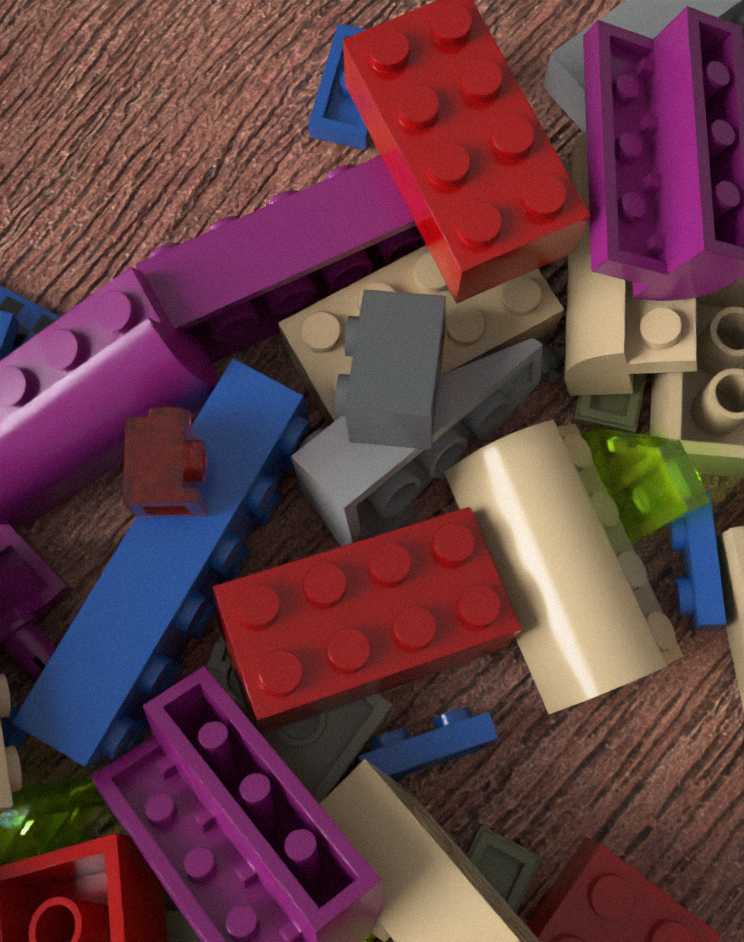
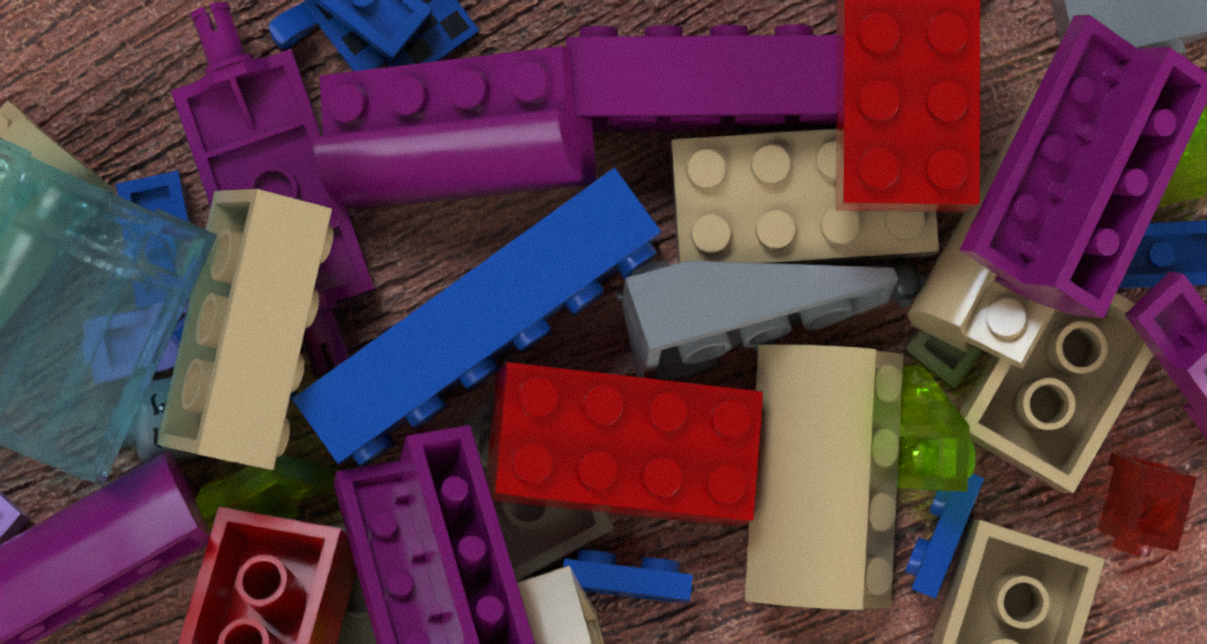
camera: 20 degrees right, 10 degrees up
(163, 465) = (515, 243): clear red brick -> none
(393, 369) = (751, 247): dark grey brick -> none

